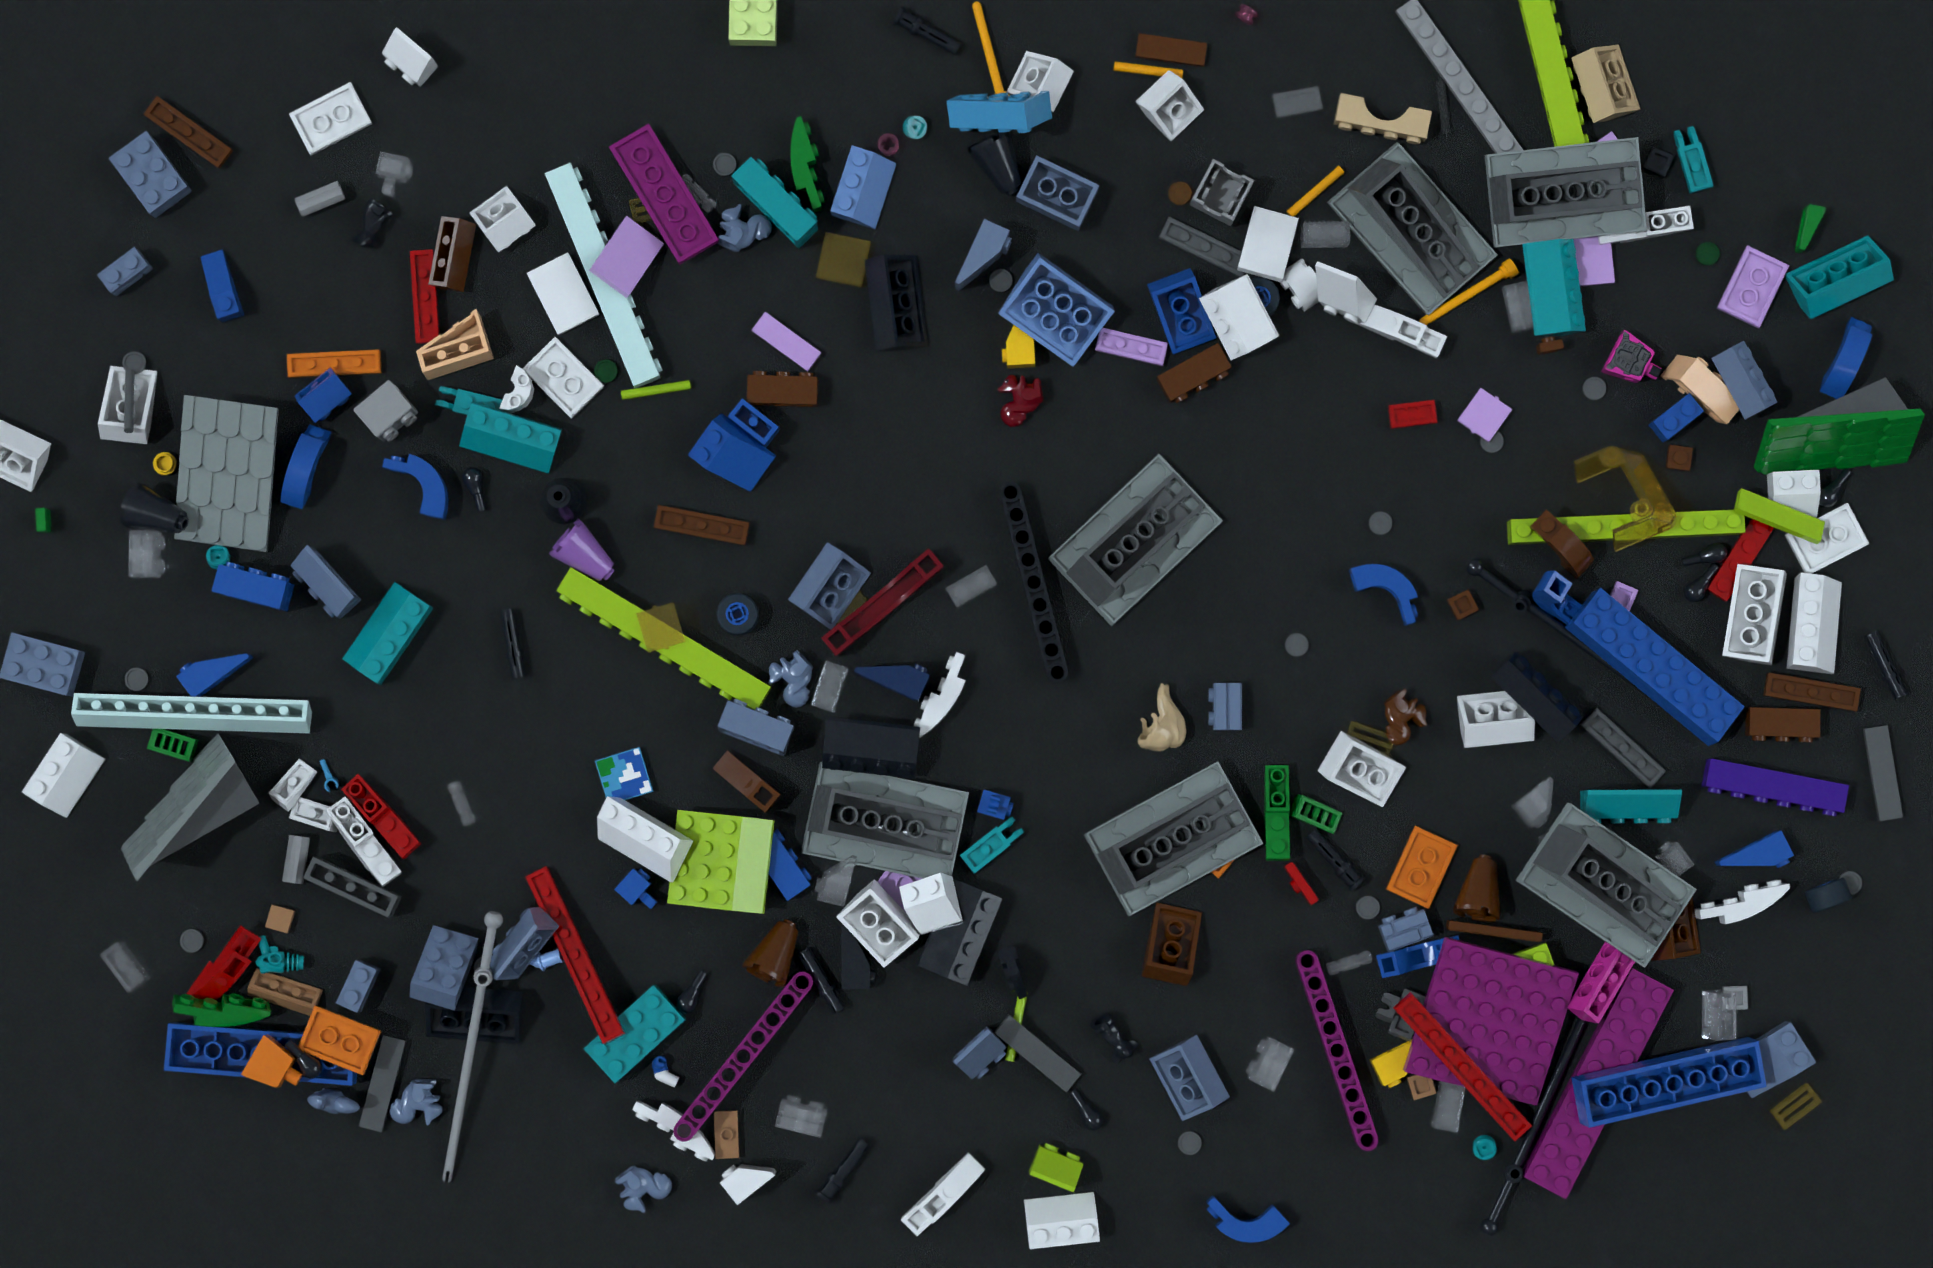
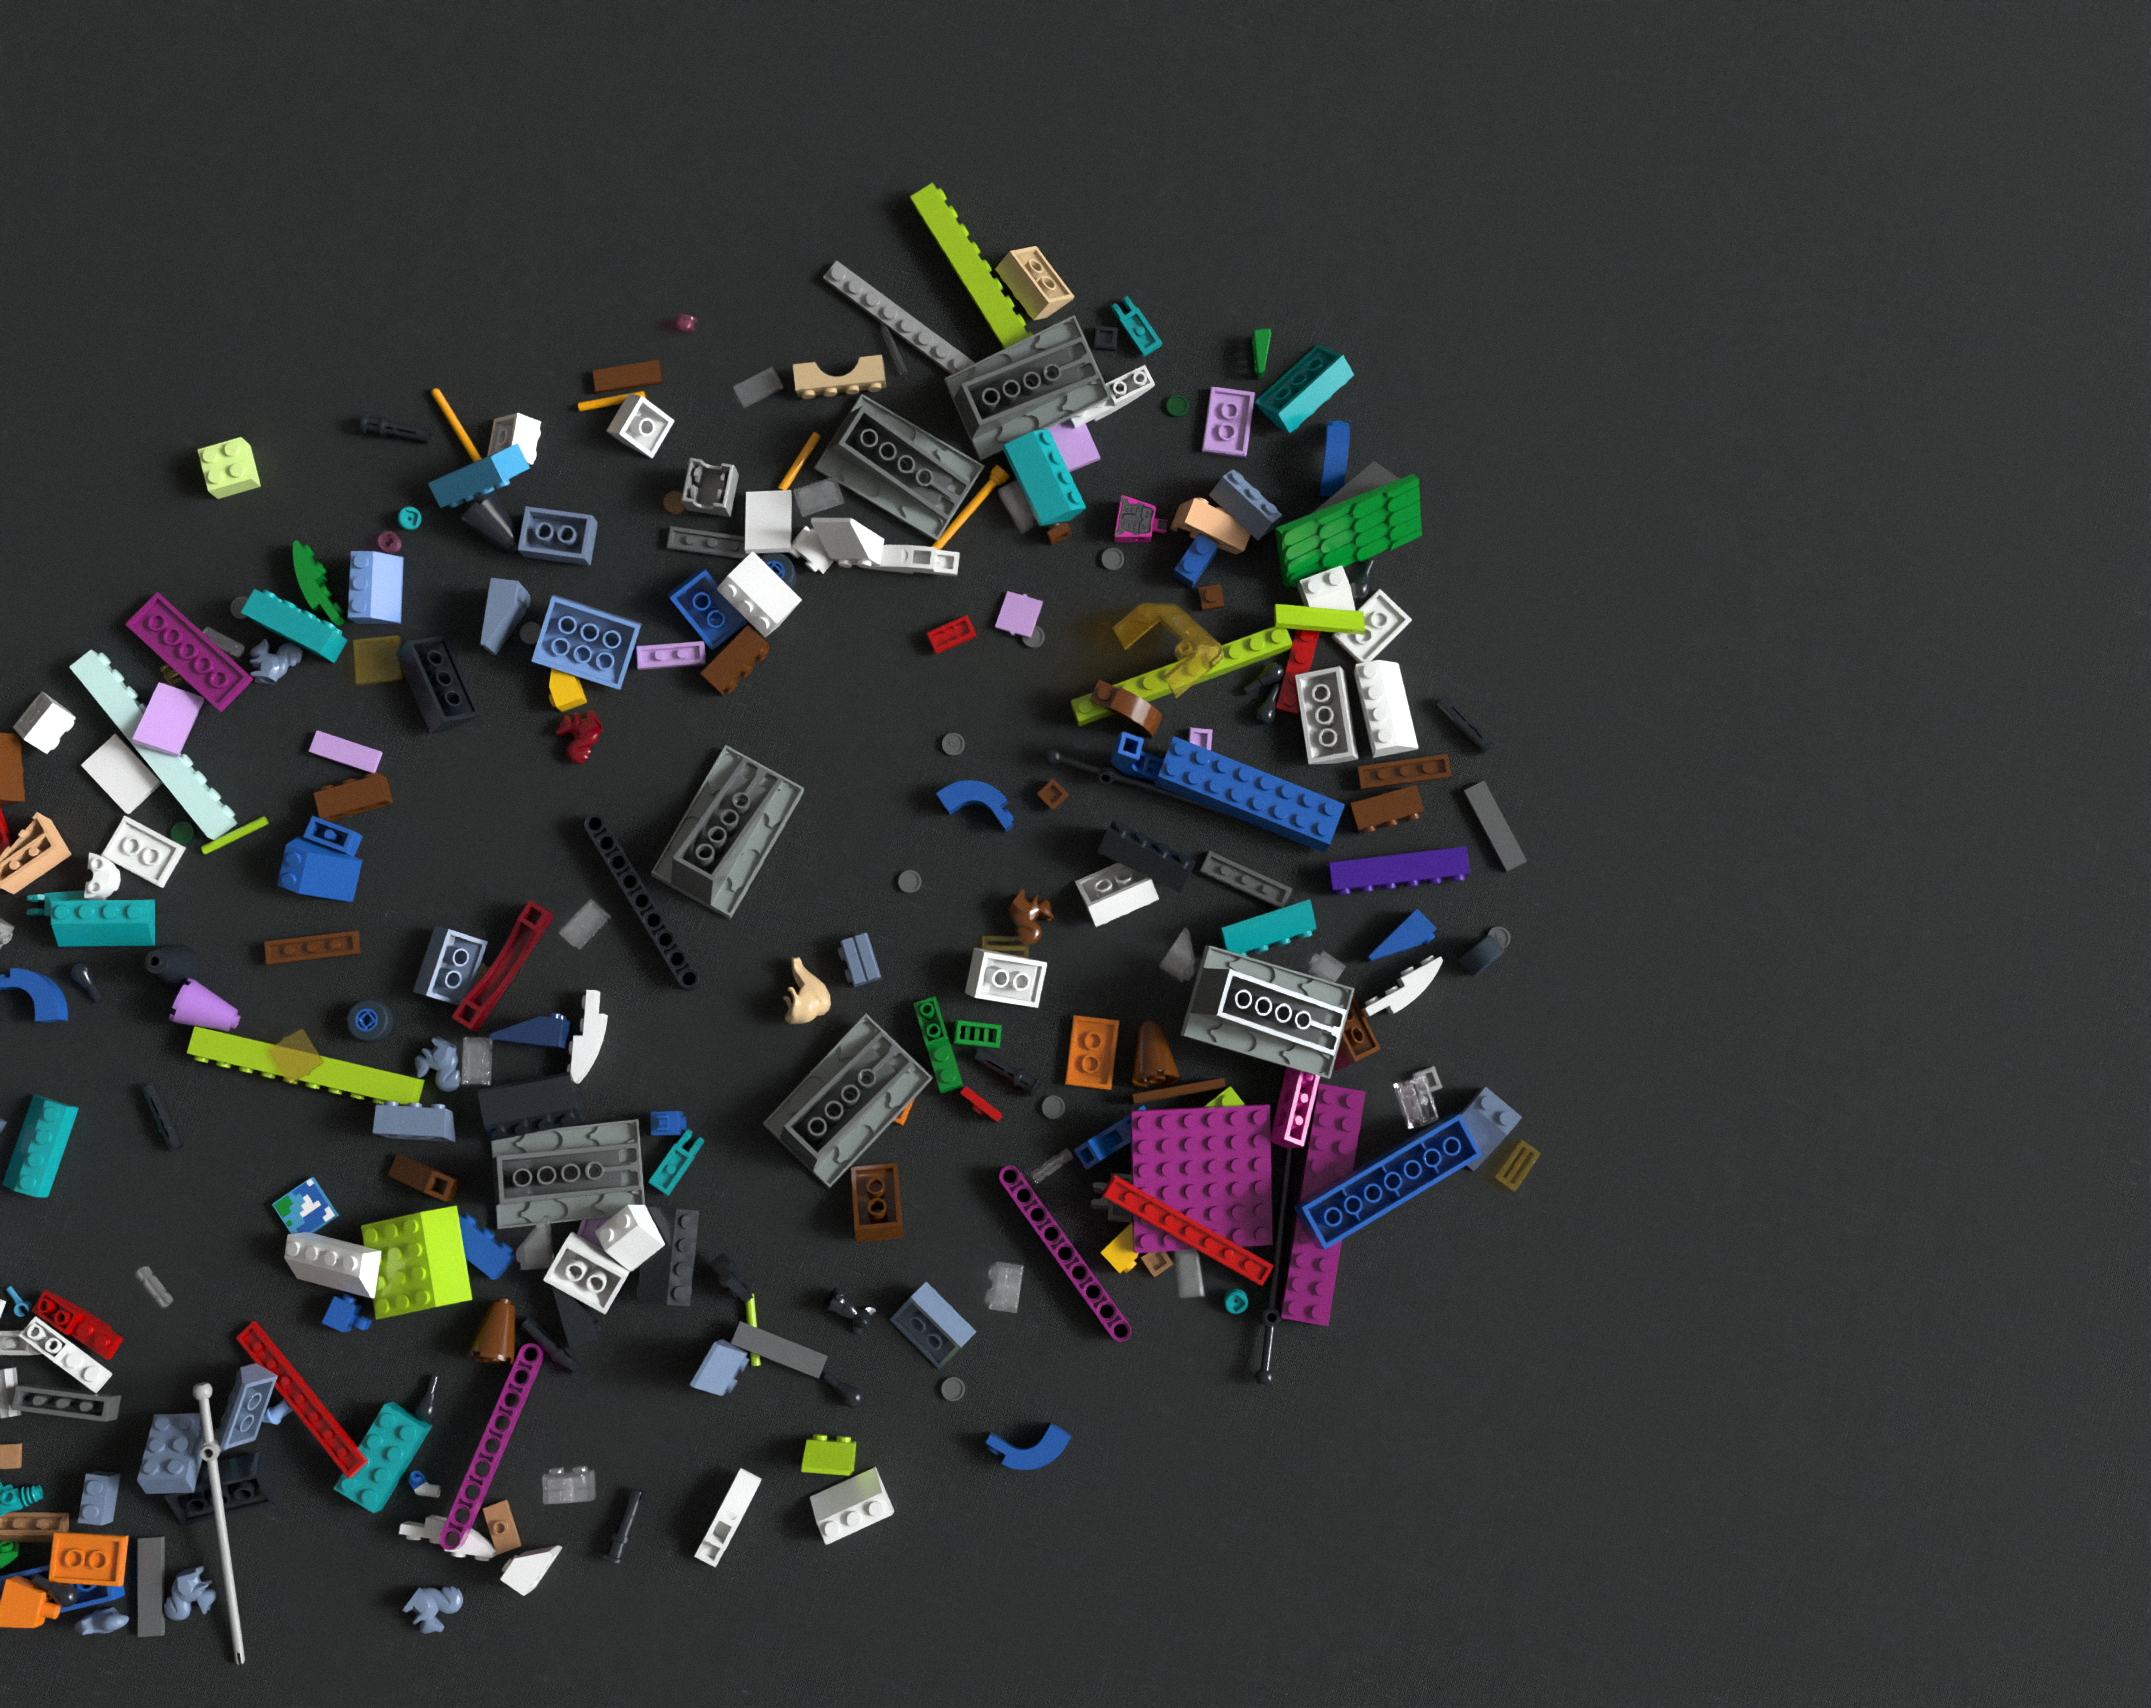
camera: 15 degrees left, 5 degrees down
(1405, 929) = (1094, 1116): sand blue brick -> none

